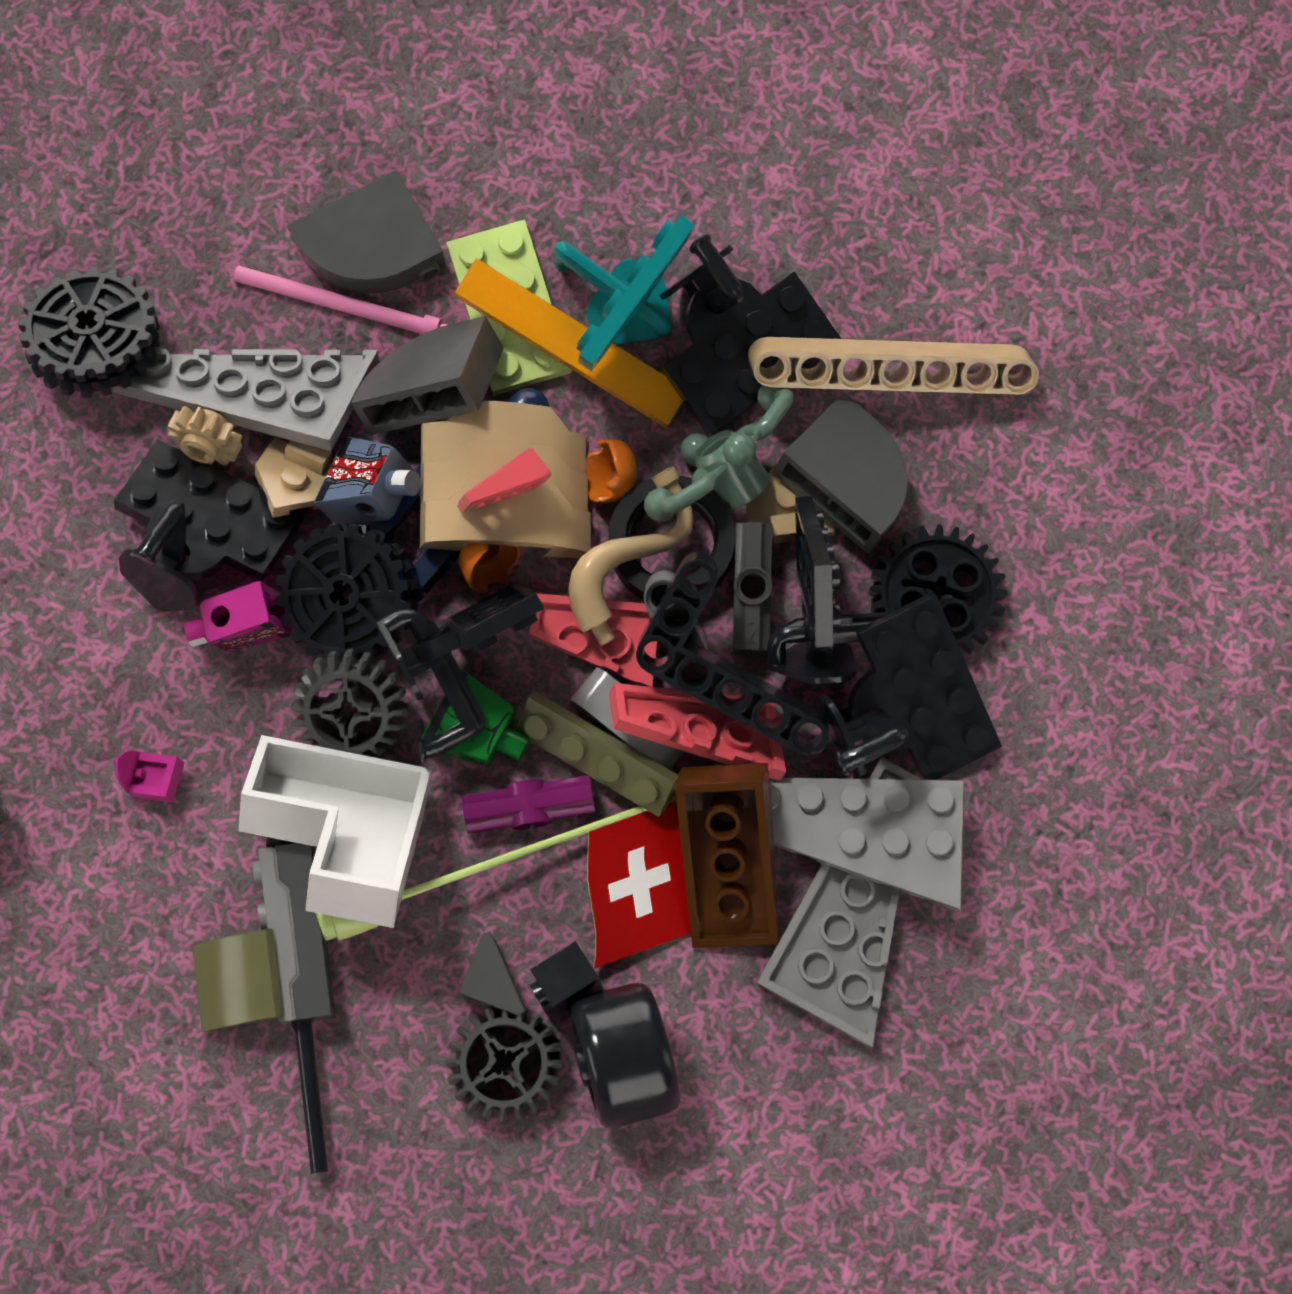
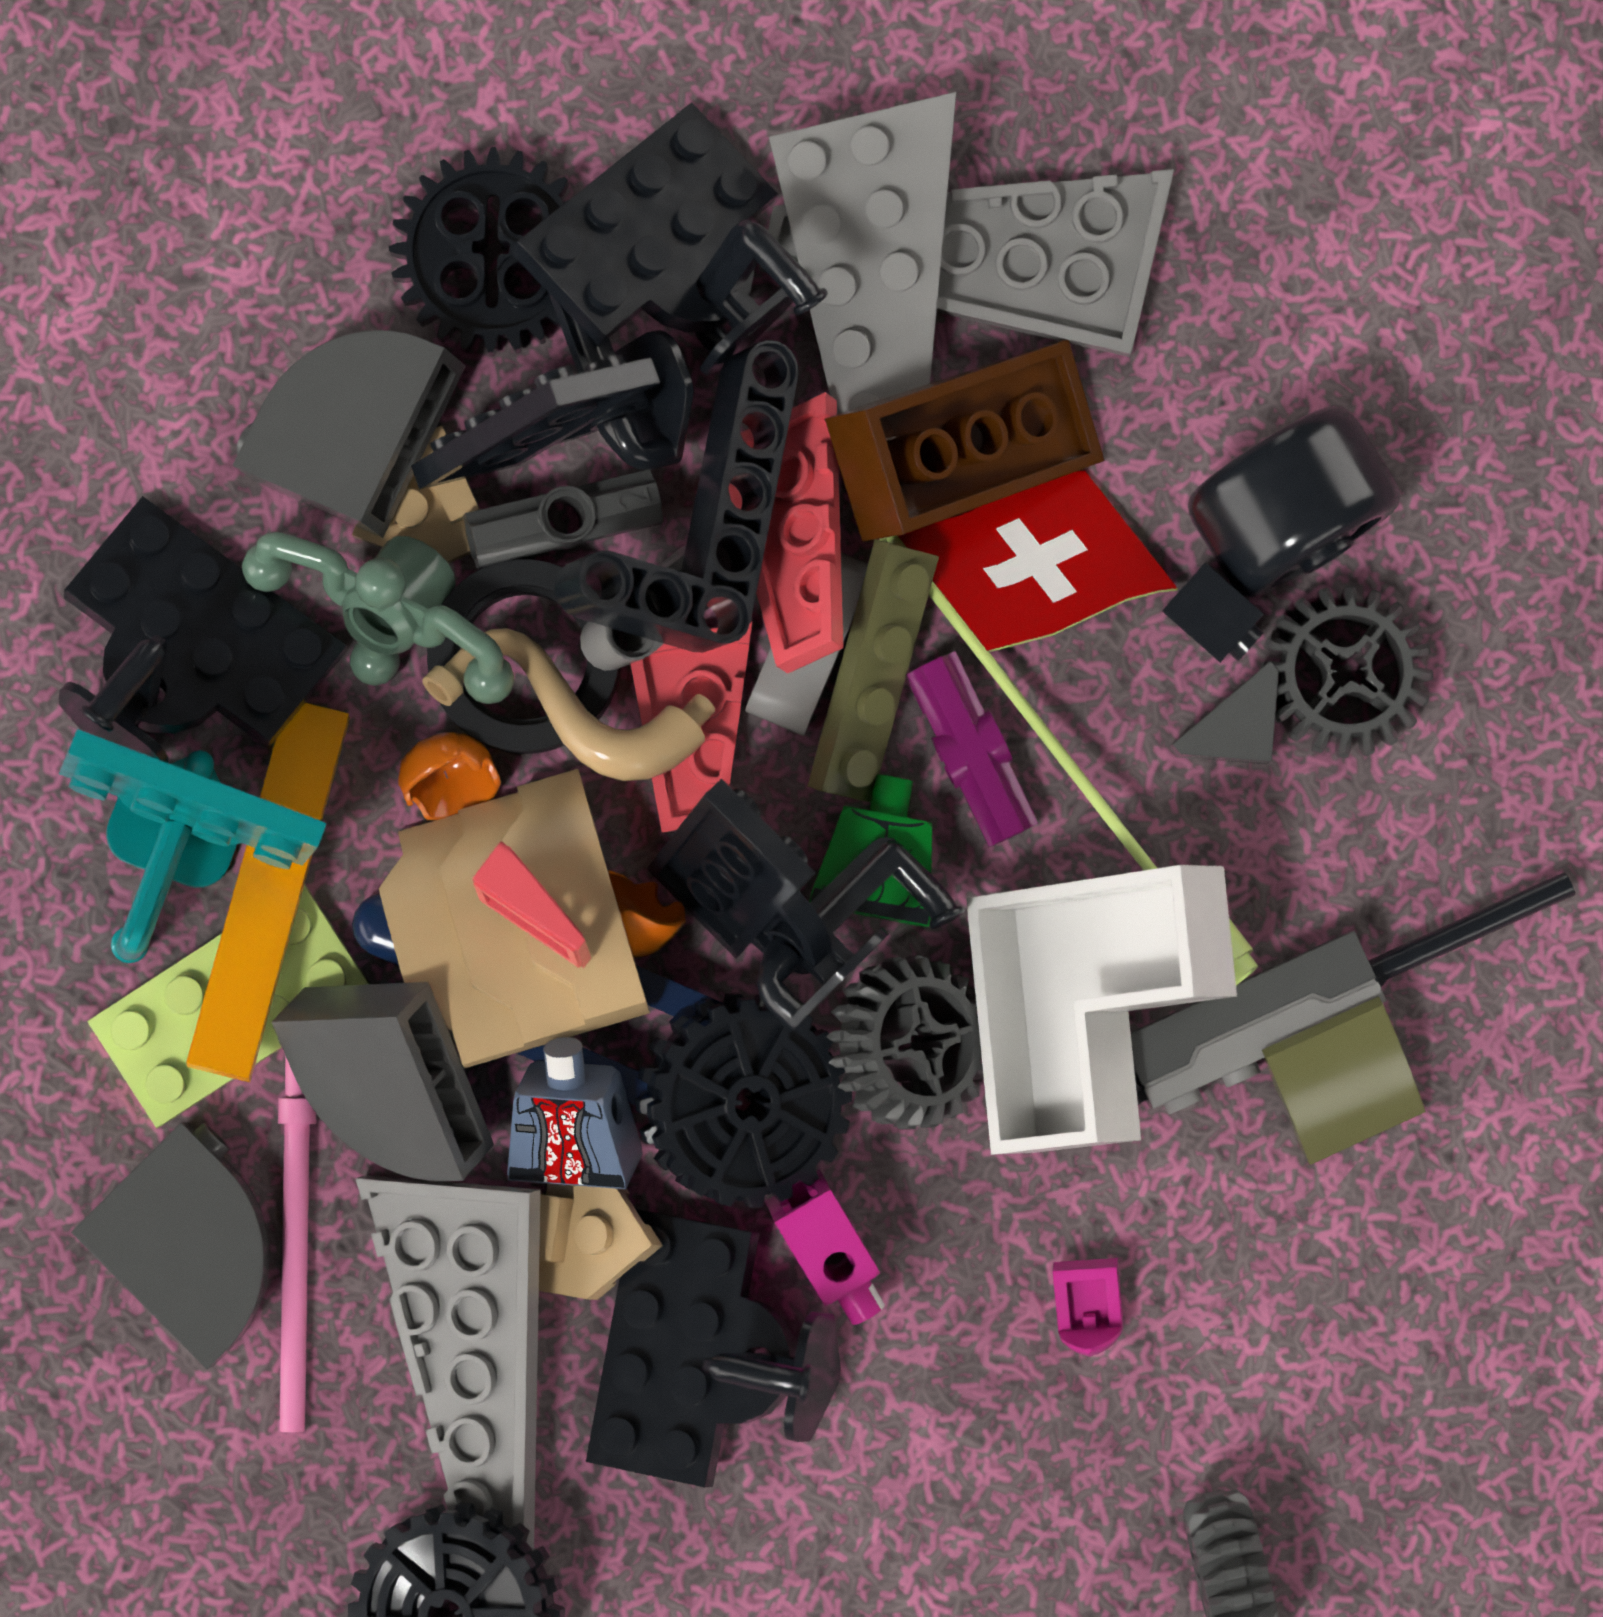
camera: 105 degrees left, 10 degrees up
(204, 436) = (567, 1386): tan gear -> none
(875, 356) = (172, 405): tan beam -> none

